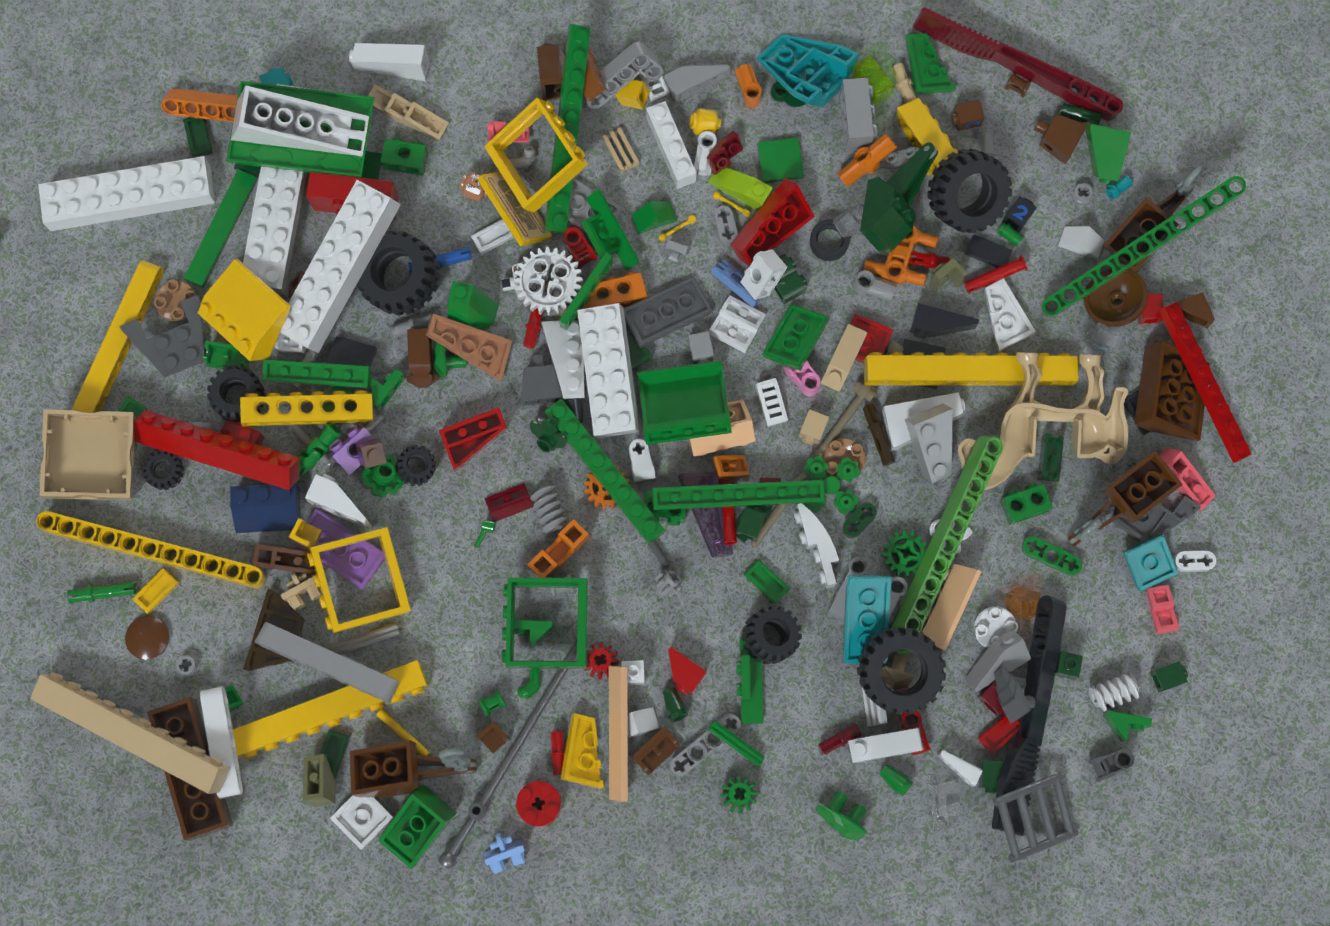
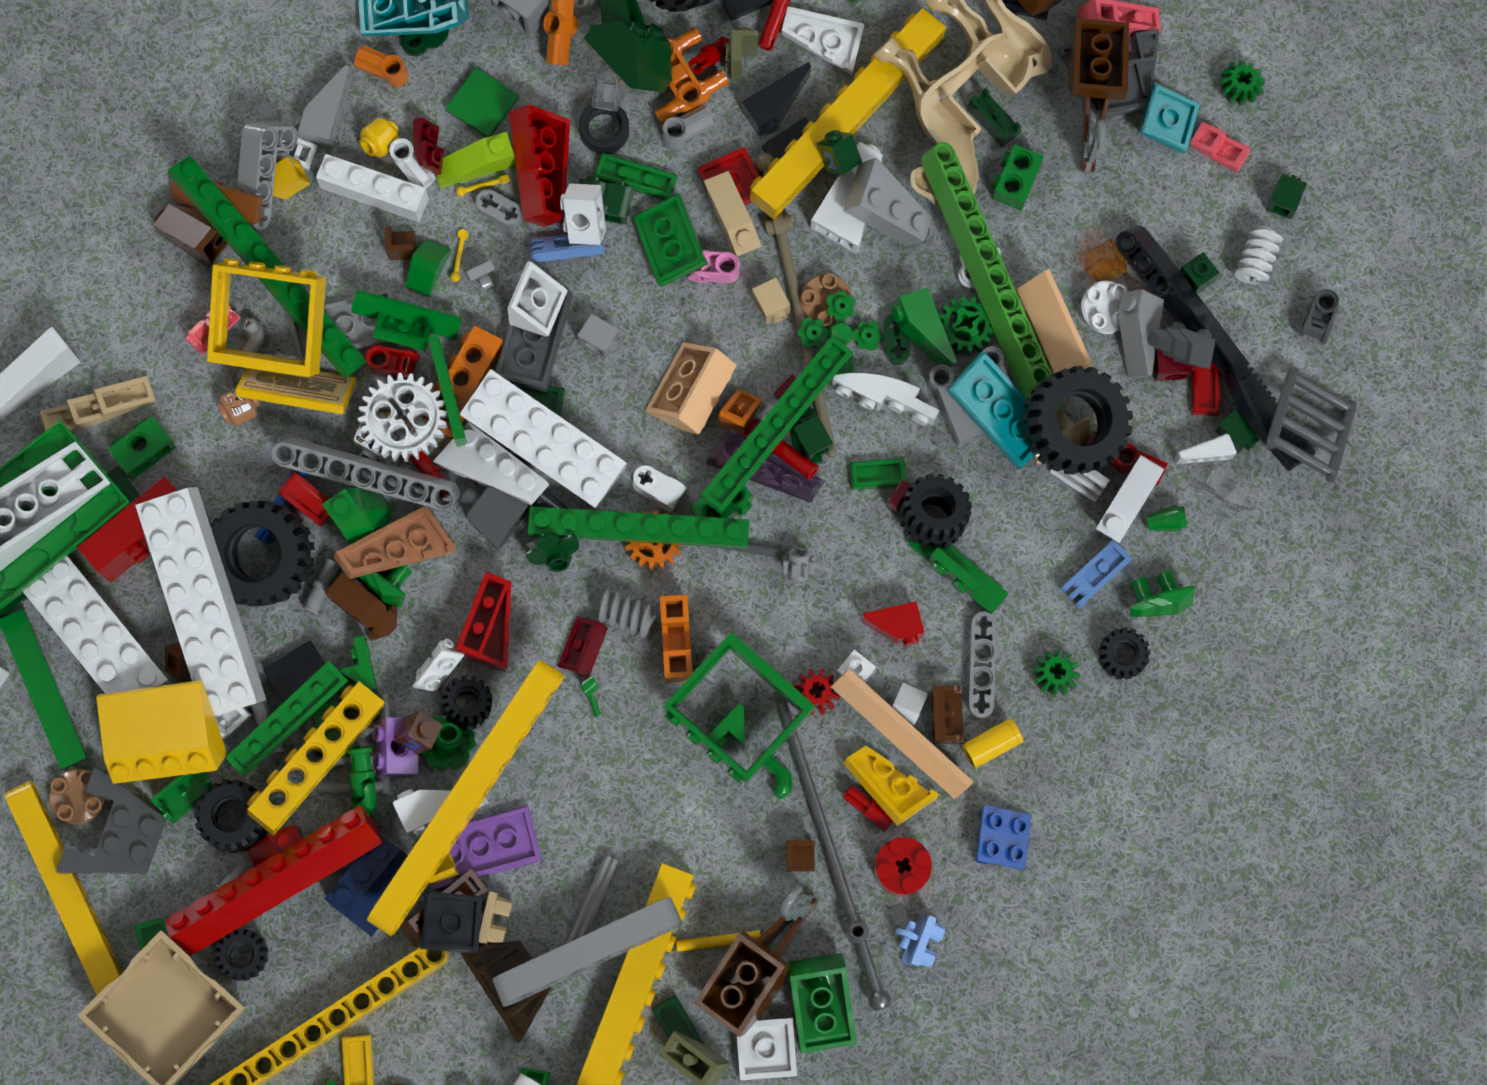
camera: 50 degrees left, 0 degrees up
(277, 569) = (451, 922): none -> black tile
(353, 512) = (465, 798): none -> yellow beam
(393, 569) = (553, 812): yellow window -> none
(421, 430) = (436, 670): none -> white hinge
(454, 268) = (304, 498): none -> red tile
(492, 236) = (304, 427): white tile -> none
(492, 703) = (765, 829): green bush -> none
(505, 296) = (353, 477): none -> light grey beam
(610, 849) = (1003, 837): none -> blue hinge
(612, 135) = (309, 233): tan tile -> none
(652, 189) = (400, 244): none -> reddish brown panel
(662, 793) = (992, 743): none -> yellow pin
(674, 705) = (921, 660): dark green cone -> none
(684, 402) = (640, 396): green panel -> none
(686, 293) = (536, 301): none -> white slope
(736, 743) = (1006, 633): green axle -> none
(737, 324) = (605, 283): white slope -> none
(759, 604) = (897, 496): none -> dark red tile
(764, 404) = (688, 318): white slope -> none
(802, 825) = (1128, 637): none -> black tyre
(817, 284) = (638, 176): none -> green tile
(824, 765) = (1097, 572): none -> medium blue hinge
(840, 739) = (1085, 536): dark red axle -> none
(878, 435) = (831, 249): dark brown axle -> none
(880, 525) = (922, 324): none -> green slope
(937, 385) = (839, 152): none -> dark green brick
(1039, 543) = (1064, 198): green beam -> none
(1120, 723) = (1292, 275): green slope -> none
(1194, 556) = (1197, 76): white beam -> none
(1210, 590) = (1241, 90): none -> green gear

